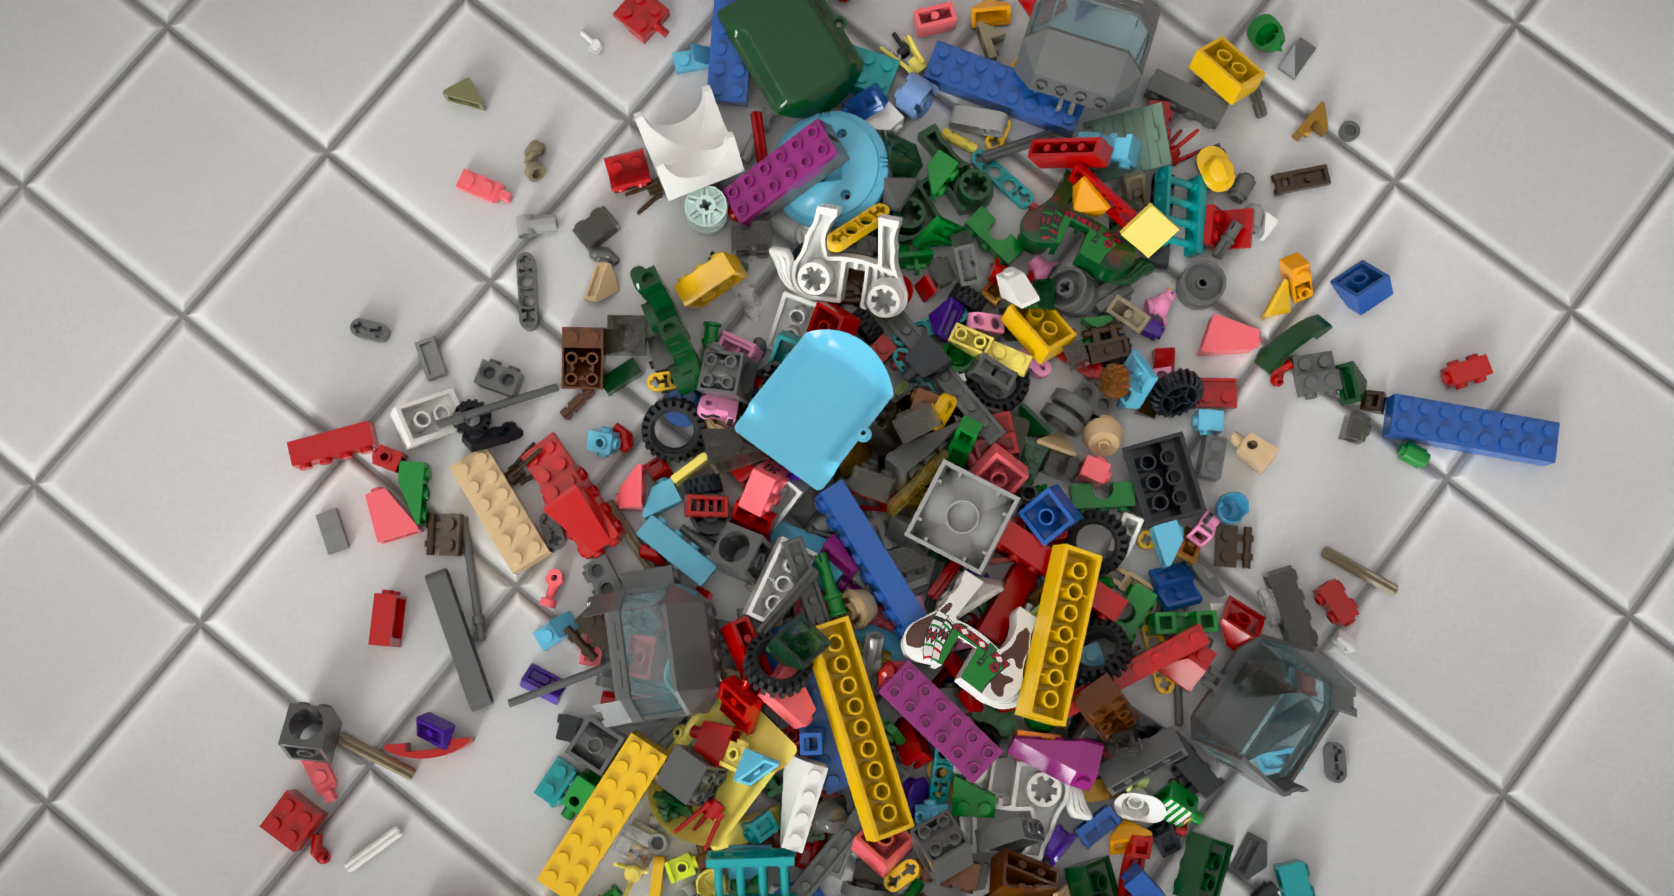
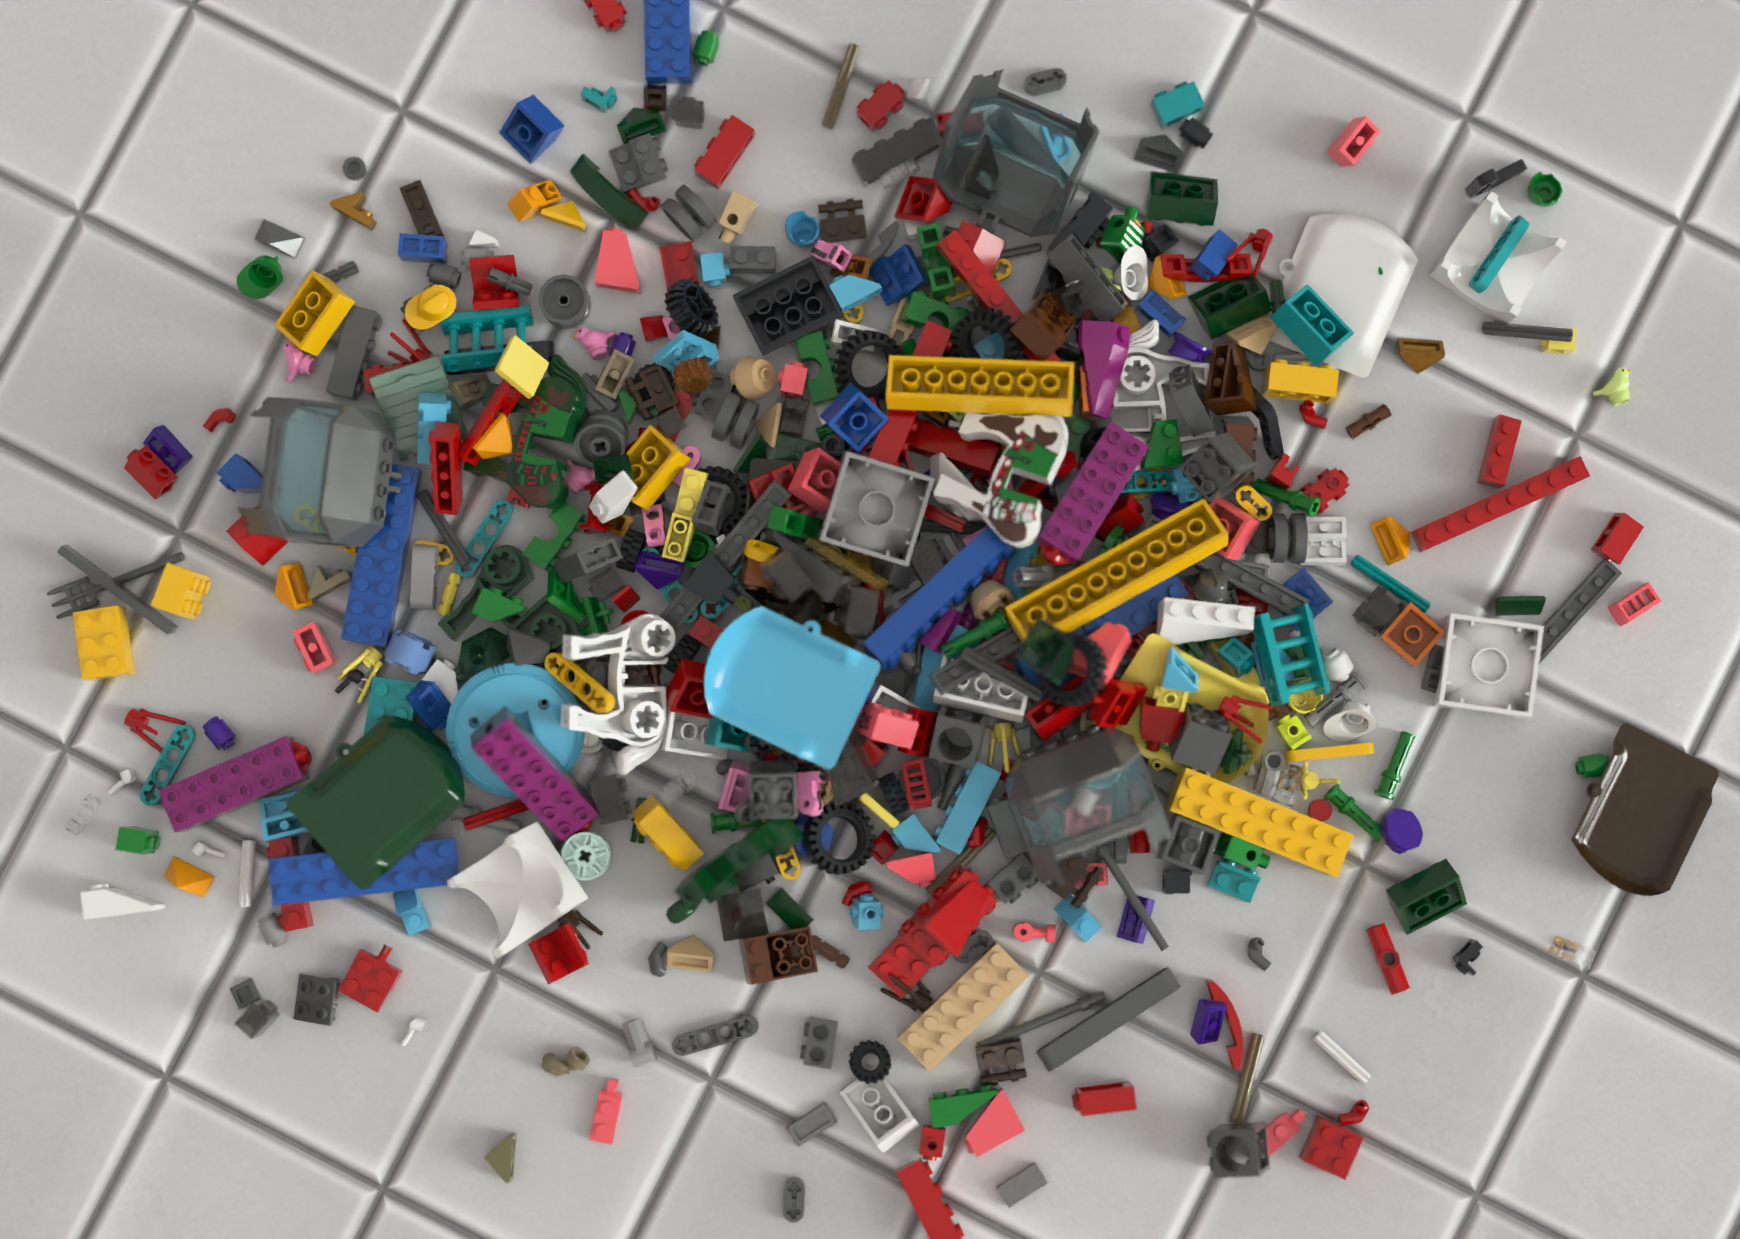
camera: 100 degrees left, 5 degrees up
(458, 417) = (874, 1072): dark grey bar -> none
(486, 787) = (1255, 953): none -> dark grey arm
(492, 437) = (886, 1033): black hinge -> none
(596, 228) = (630, 975): clear smoke brick -> none
(603, 877) = (1320, 810): none -> red tile
(650, 645) = (1083, 800): none -> light grey piece
(736, 596) = (1003, 732): none -> light yellow plant
(812, 741) = (1141, 619): blue brick -> none
(1184, 52) = (298, 361): none -> bright pink animal
(1265, 410) = (686, 214): none -> dark grey wheel
(1269, 173) = (422, 248): none -> blue hinge
(1314, 452) = (724, 151): none -> red brick
(1380, 349) = (596, 99): none -> teal bracket

